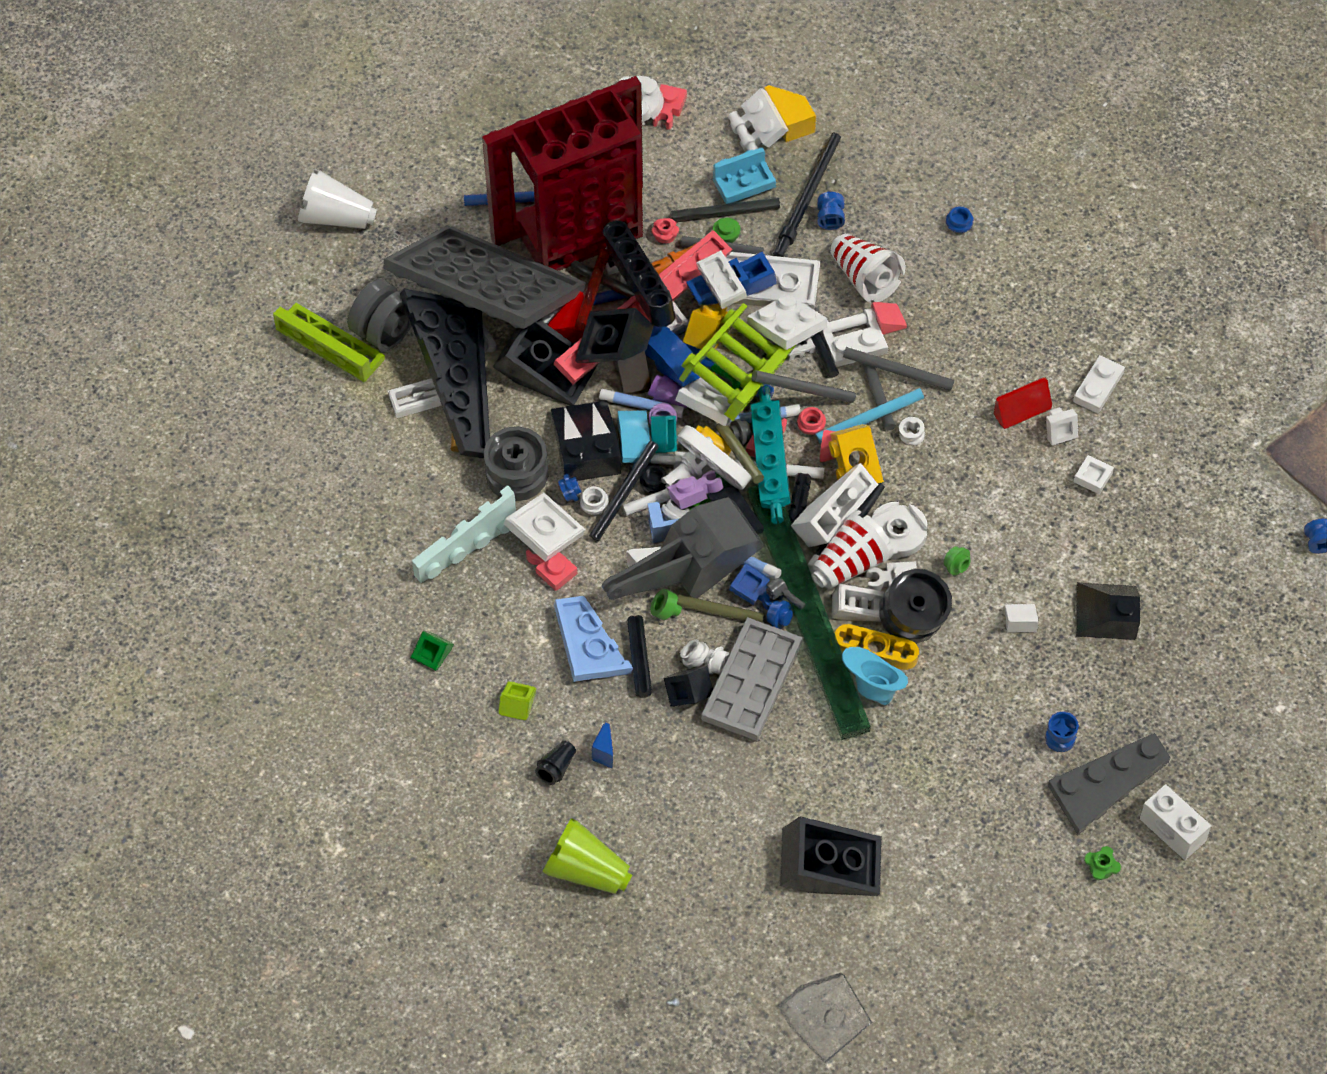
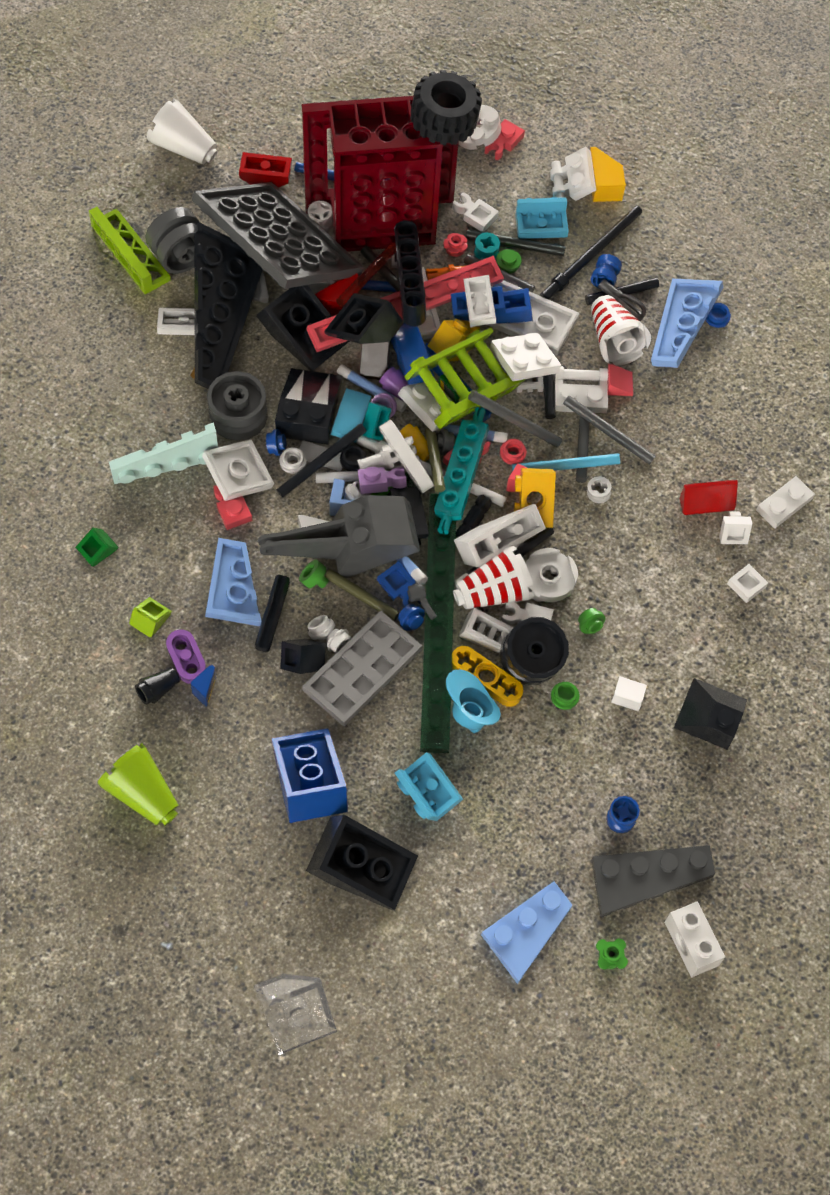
camera: 15 degrees right, 5 degrees up
(434, 213) = (265, 169): none -> red slope
(517, 238) = (321, 210): none -> white wheel
(574, 727) = (186, 658): none -> medium lavender plate
(612, 484) = (313, 451): none -> white sticker
(637, 80) = (461, 110): none -> black tyre
(674, 192) = (477, 214): none -> white plate
(703, 218) = (486, 240): none -> teal wheel
(746, 796) = (310, 775): none -> blue slope
(844, 228) = (621, 298): none -> dark grey piece
(855, 224) = (627, 289): none -> black bar
(867, 768) = (428, 788): none -> medium azure bracket
(927, 230) = (682, 318): none -> light blue wing
(960, 639) = (565, 695): none -> bright green plate
(1013, 869) = (526, 929): none -> light blue wing

